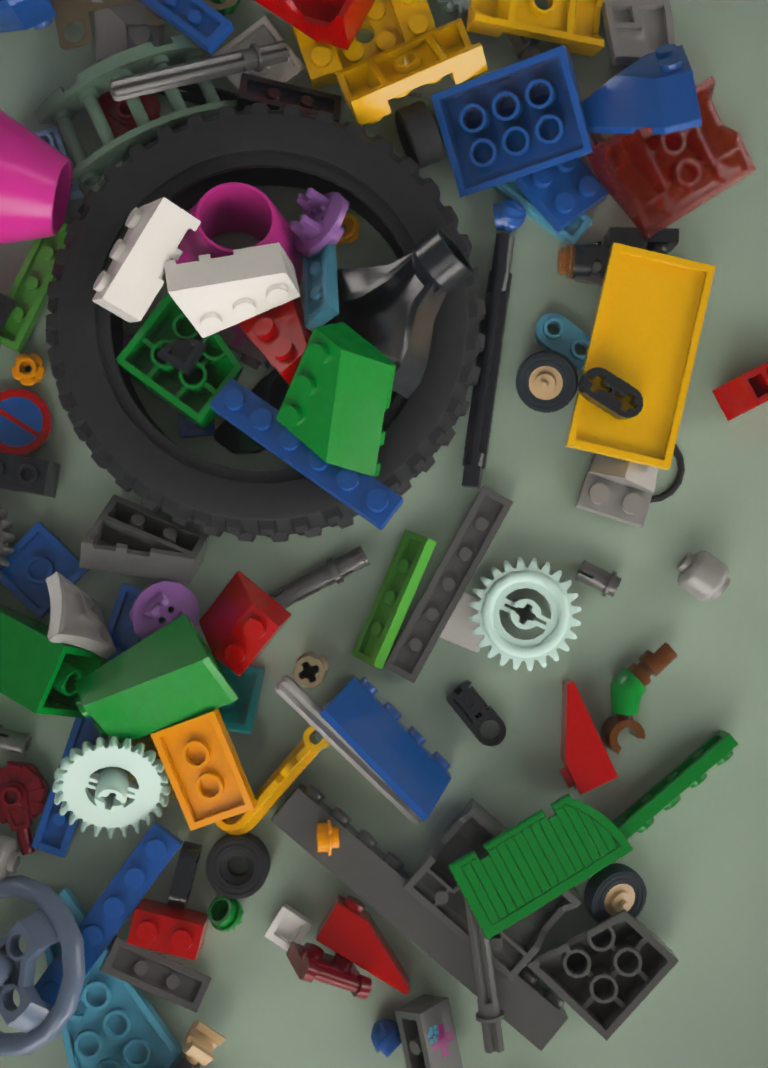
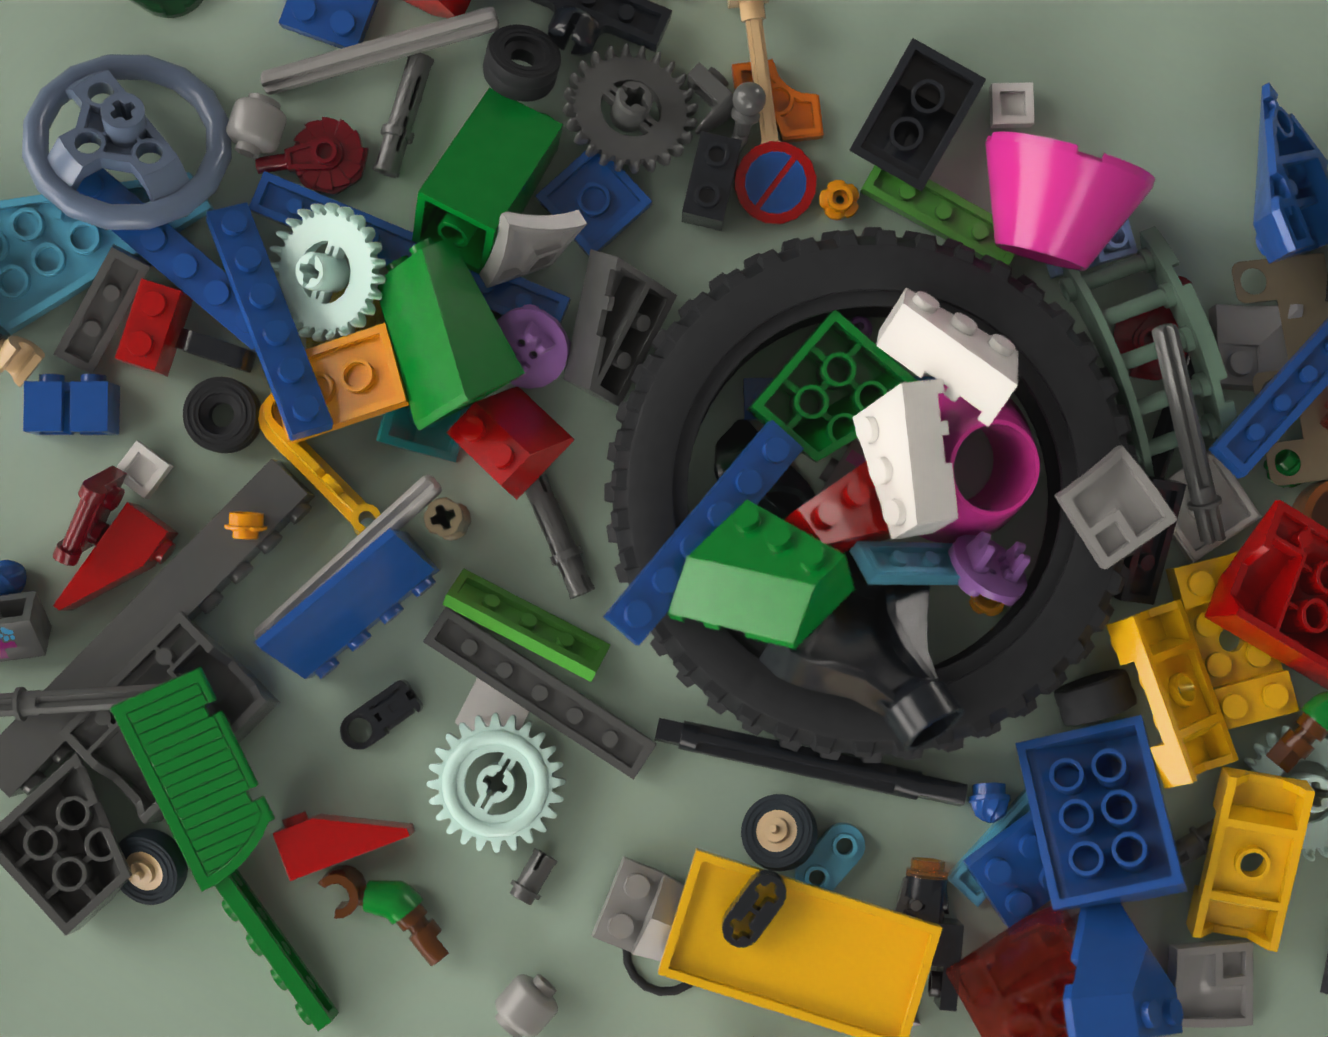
camera: 90 degrees right, 0 degrees up
(155, 831) = (269, 321): none -> blue plate
(183, 354) = (836, 391): black tile -> none
(225, 913) = (166, 396): green plate -> none
(239, 992) = (72, 406): none -> blue piece
(262, 118) = (1115, 507): none -> light grey plate

